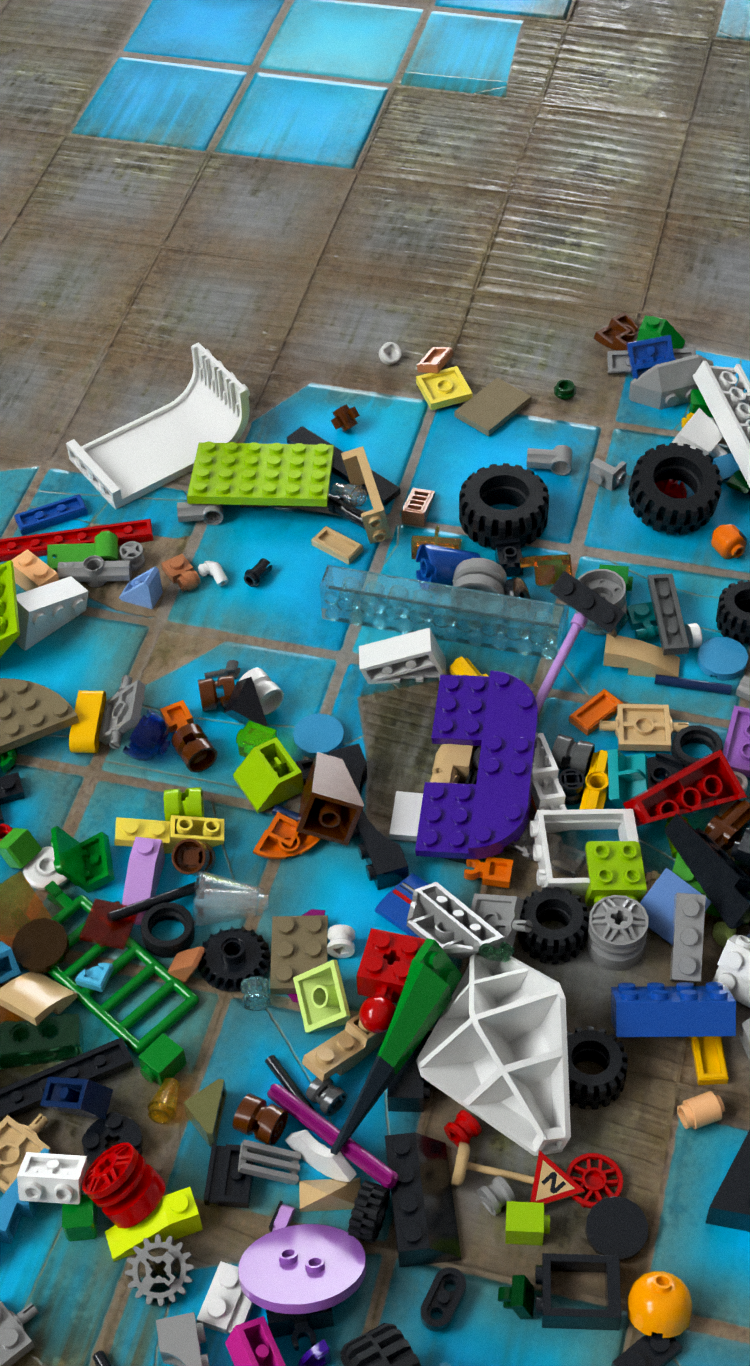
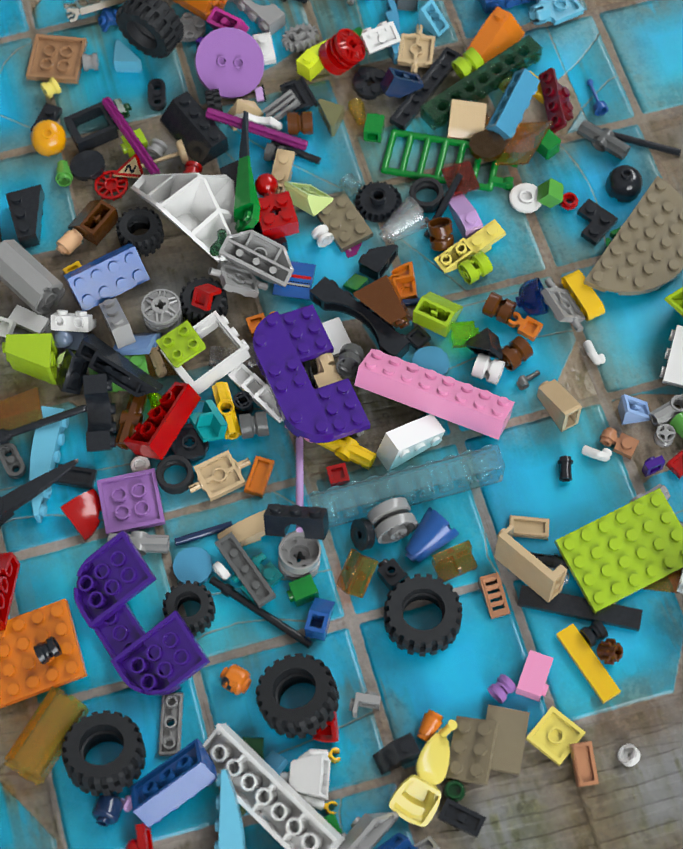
camera: 150 degrees right, 15 degrees up
(83, 863) = (508, 202): green bracket -> none
(95, 977) = (443, 147): medium azure tile -> none
(132, 663) = (591, 352): none -> white arm
(169, 534) = (653, 465): none -> dark purple plate
(186, 963) = (400, 180): nougat slope -> none
(214, 618) = (559, 404): none -> tan slope
(292, 874) = (377, 261): none -> black slope
(339, 864) = (355, 283): none -> green slope
(344, 687) = (434, 393): none -> bright pink brick
(347, 437) = (594, 632): none -> black wheel
(371, 424) = (588, 663): none -> yellow tile
(413, 765) = (349, 360): none -> dark grey wheel
(429, 430) = (534, 676): none -> bright pink brick
(467, 434) = (501, 688): none -> medium lavender wheel
(507, 665) = (337, 474): none -> red plate
(529, 405) = (472, 750): none -> dark tan plate
(530, 1218) = (130, 136): none -> magenta axle
(550, 903) = (204, 295): none -> red panel
(555, 436) = (429, 725): none -> orange cone
(557, 460) = (414, 698): light grey piece -> none
(572, 369) = (462, 818): none -> black plate
(594, 389) = (417, 795): none -> light yellow piece
(600, 428) = (396, 754): none -> black slope
(612, 546) = (319, 619): none -> blue slope
(650, 1121) = (95, 221): none -> reddish brown slope
(661, 1233) = (63, 174): none -> bright green cone
(691, 616) = (228, 591): none -> black bar

